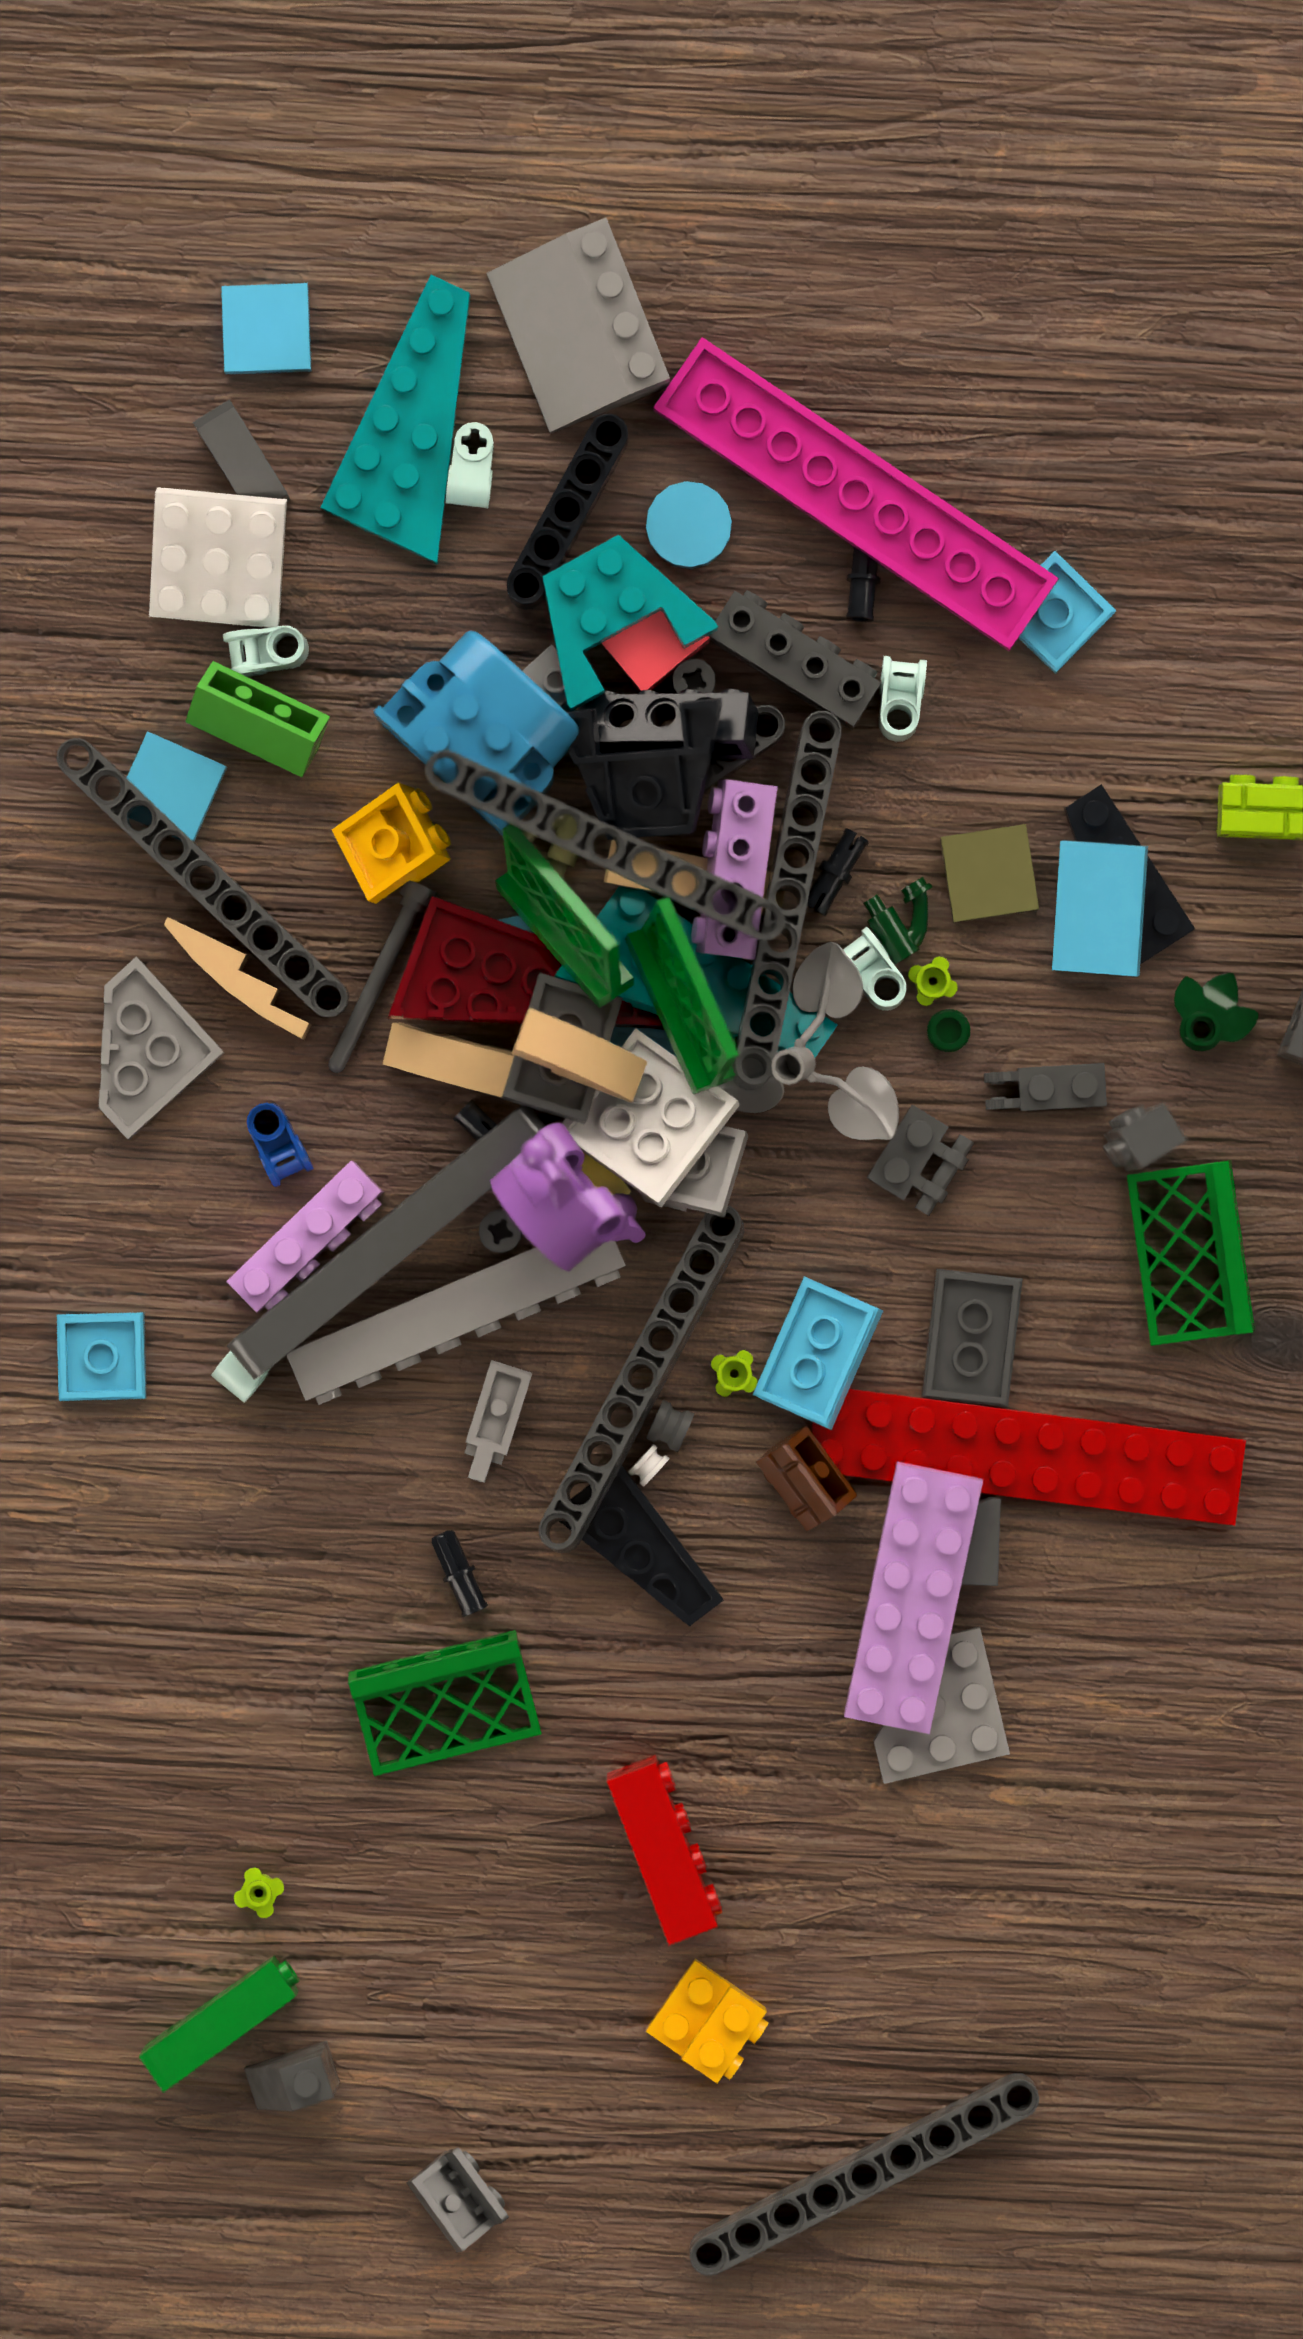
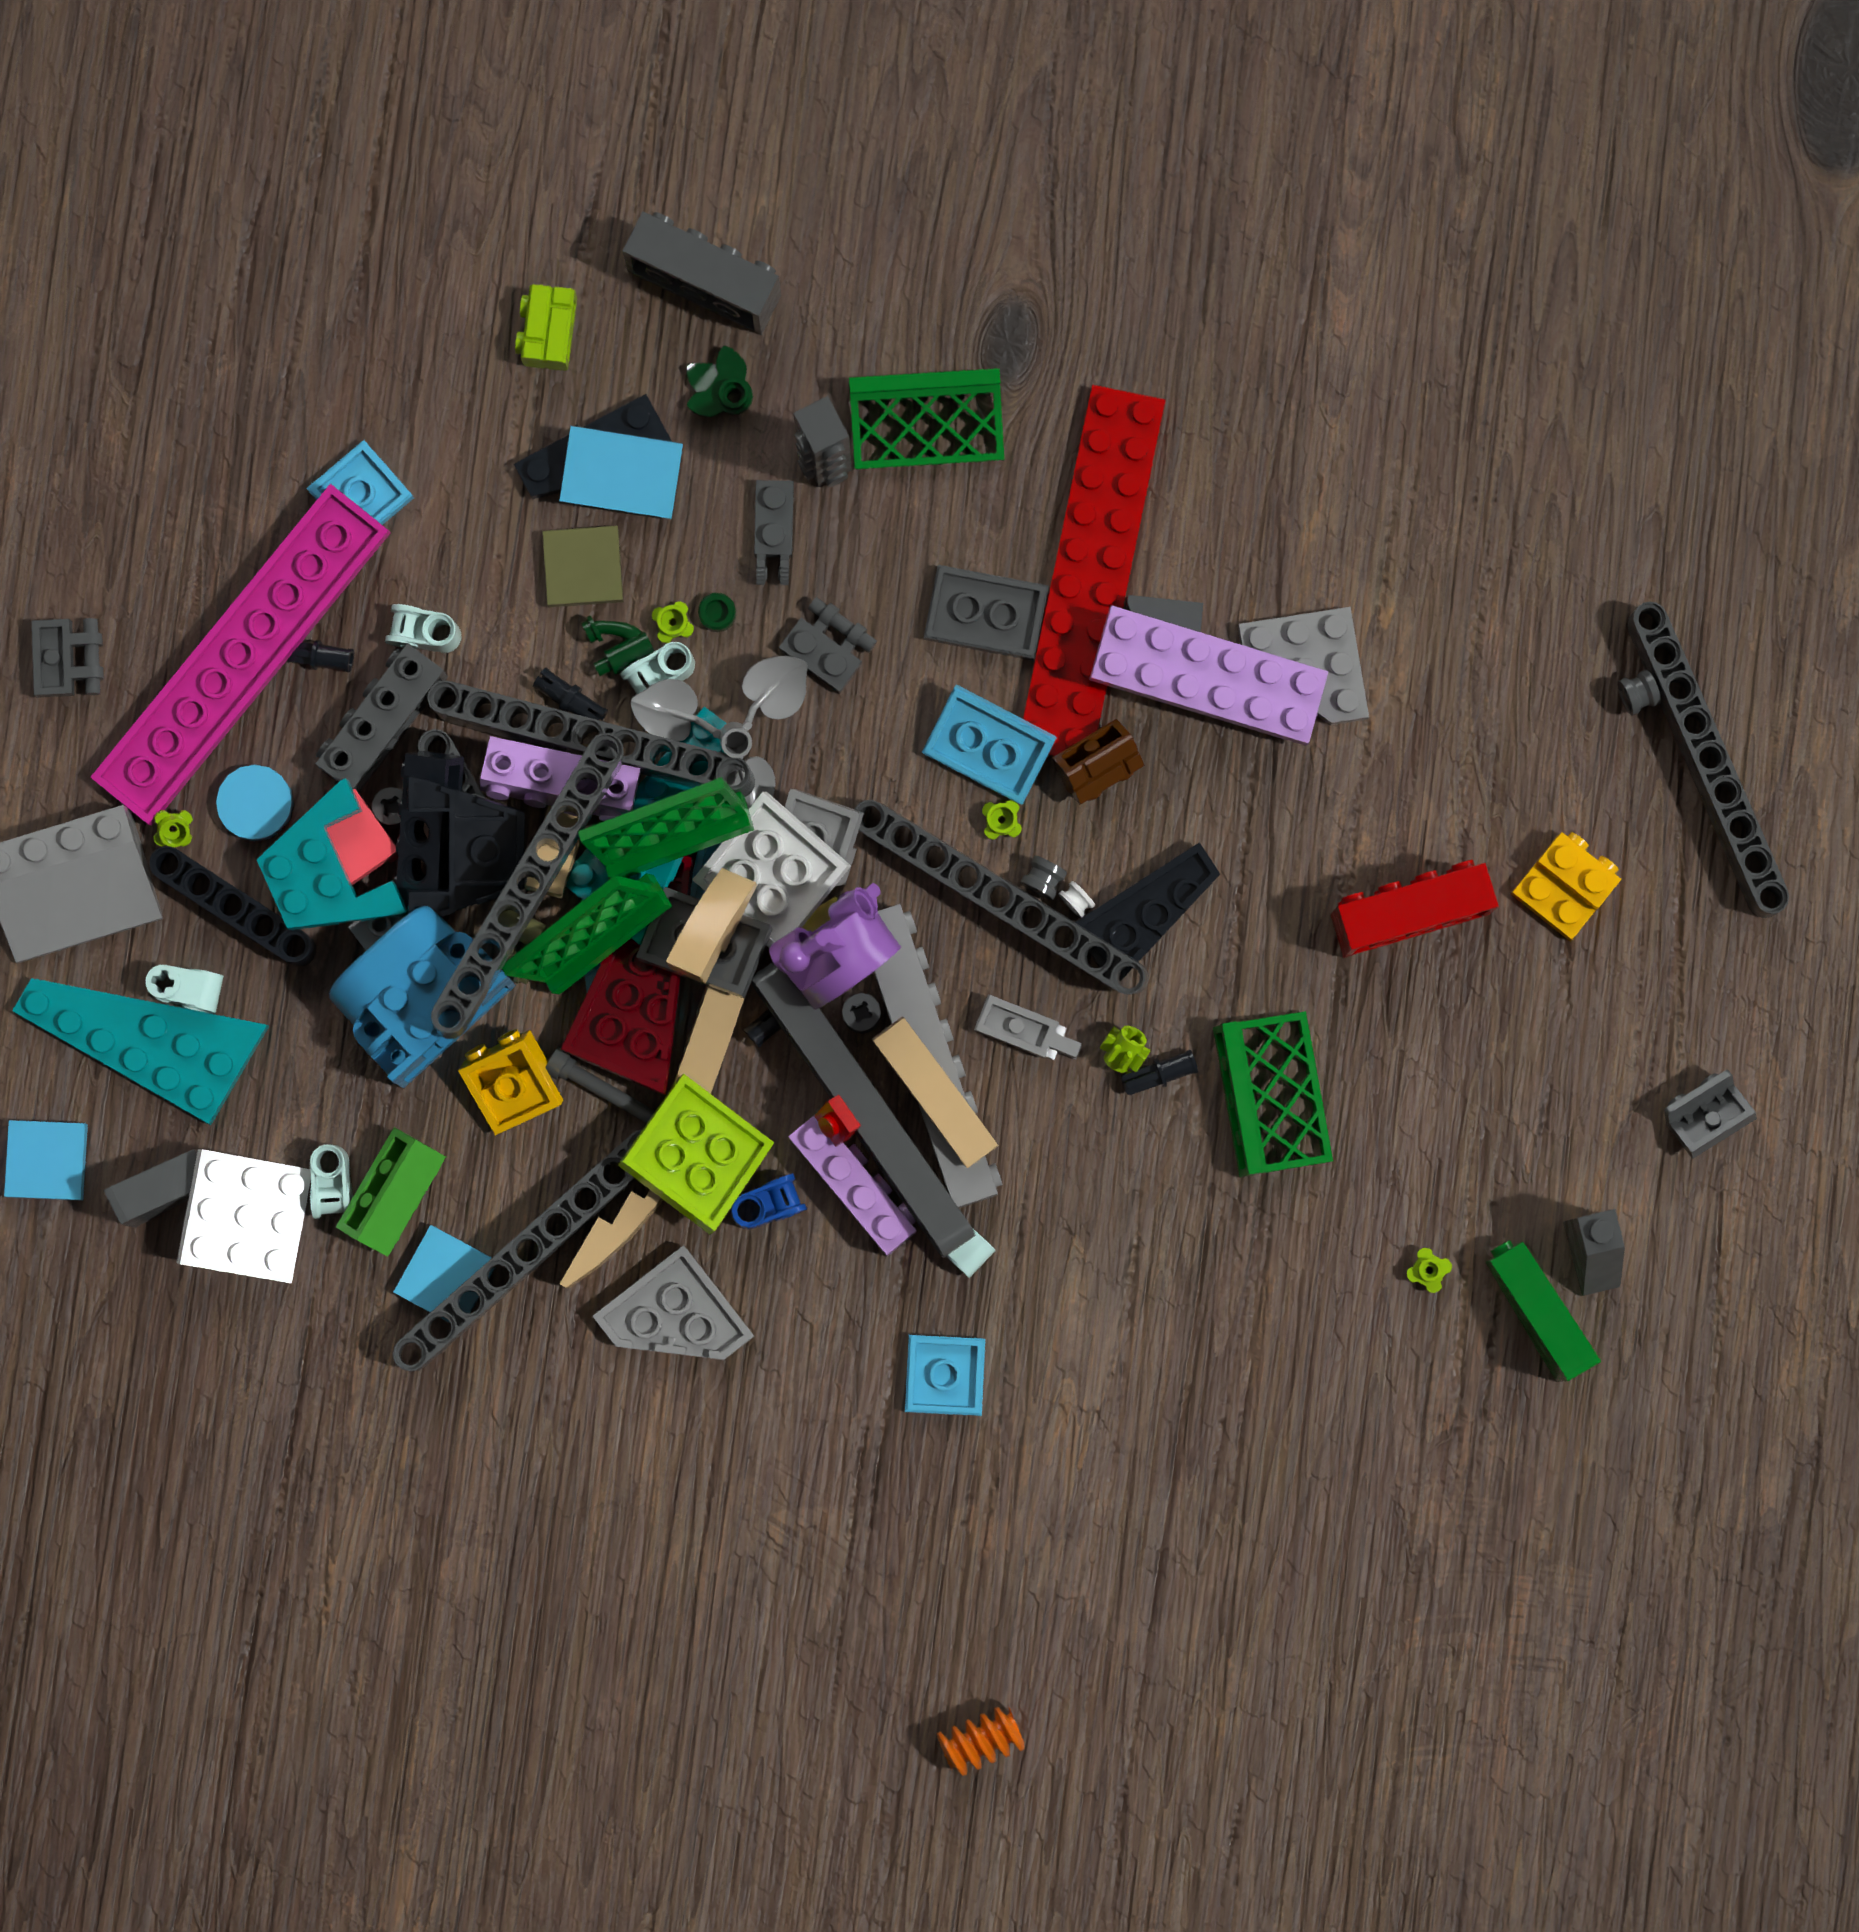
camera: 85 degrees left, 5 degrees down
(323, 1058) = (696, 1154): none -> lime plate
(369, 1213) = (837, 1121): none -> red plate
(411, 1321) = (934, 1092): none -> tan slope
(481, 1532) = (1125, 1049): none -> lime gear
(641, 439) = (176, 838): none -> lime plate
(833, 283) = (54, 657): none -> dark grey plate
(935, 2091) = (1639, 692): none -> dark grey wheel

